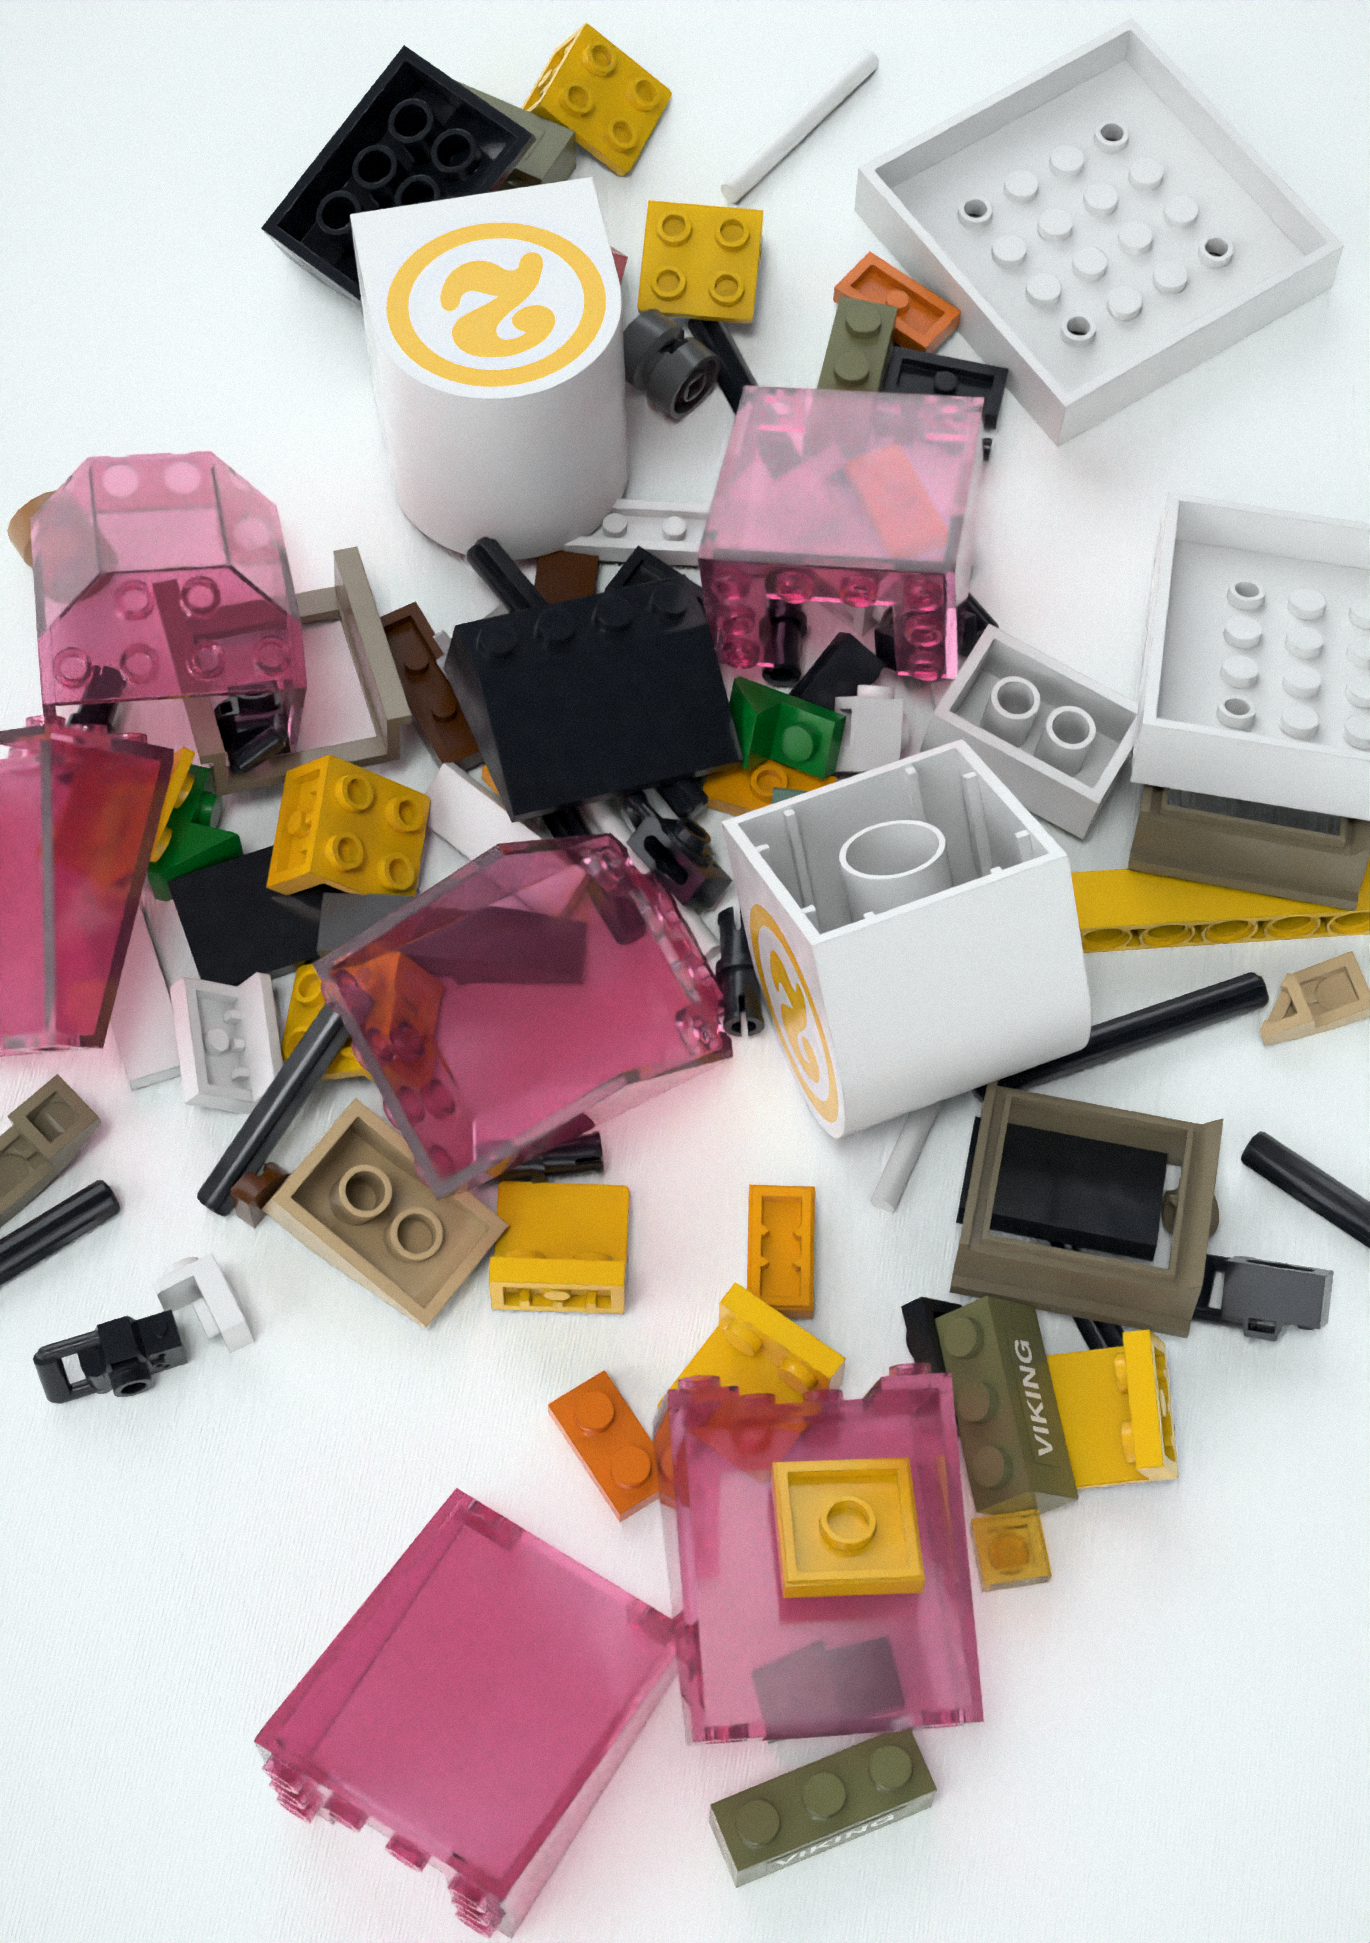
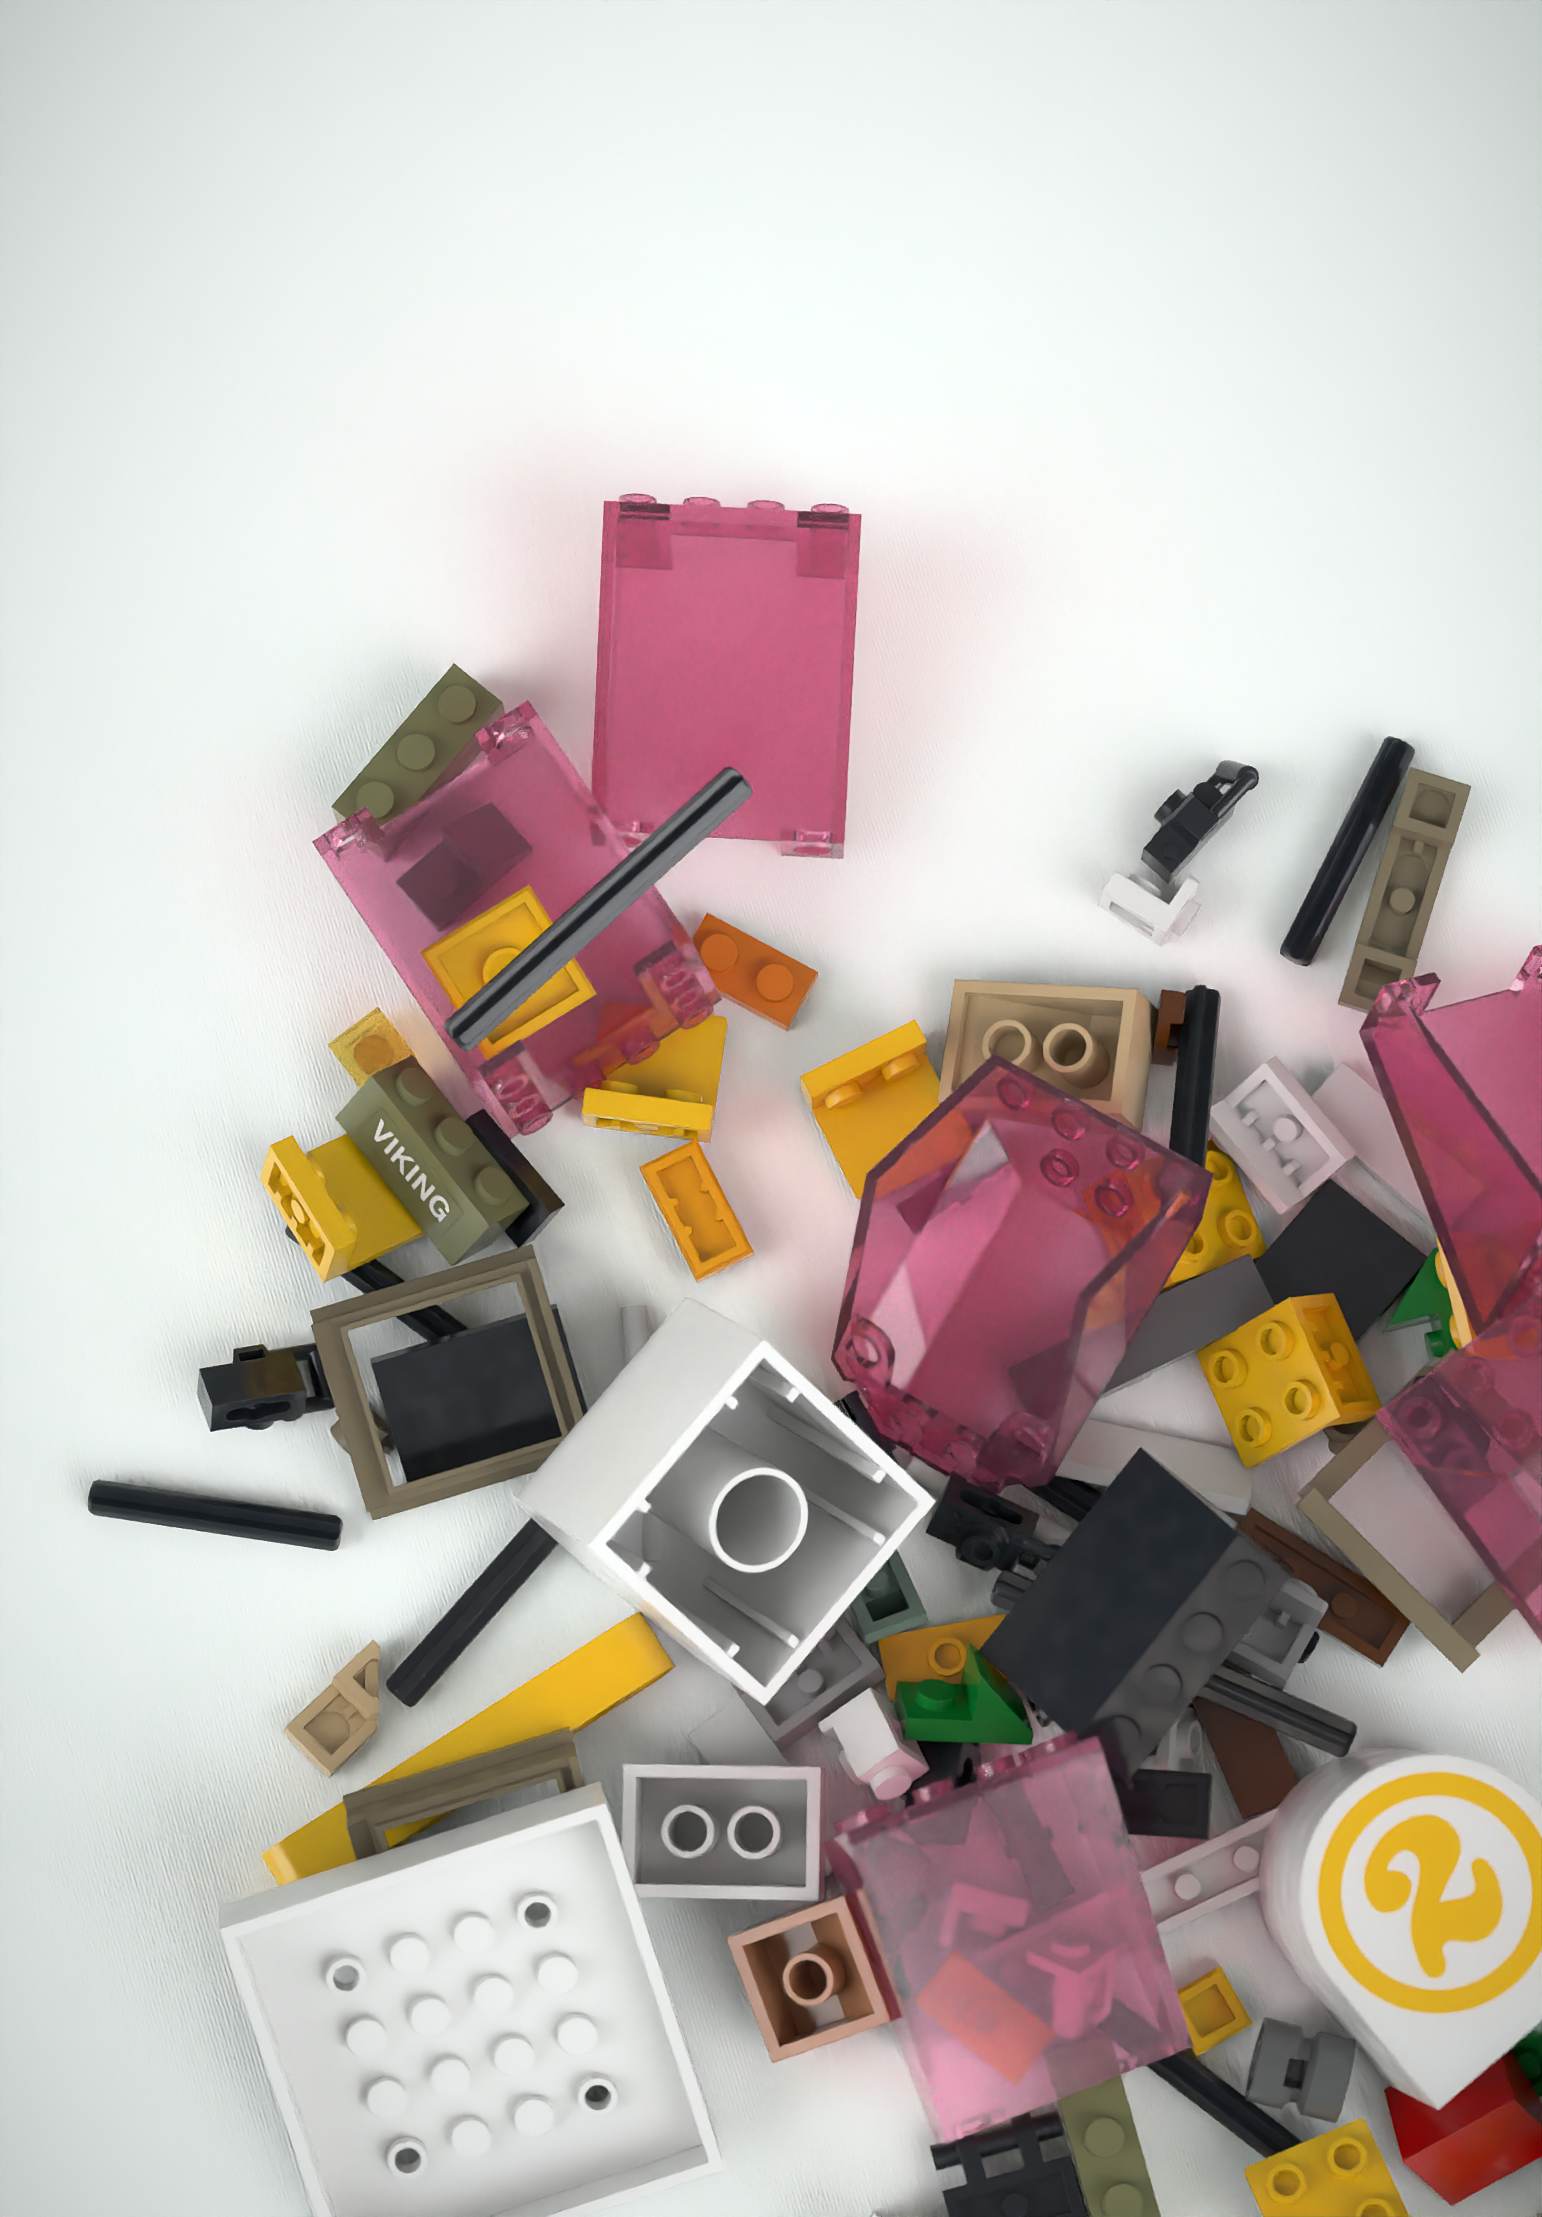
camera: 155 degrees right, 15 degrees up
(703, 447) = (1212, 2010): none -> yellow tile
(738, 1468) = (598, 908): none -> axle
(1026, 582) = (809, 1977): none -> nougat slope

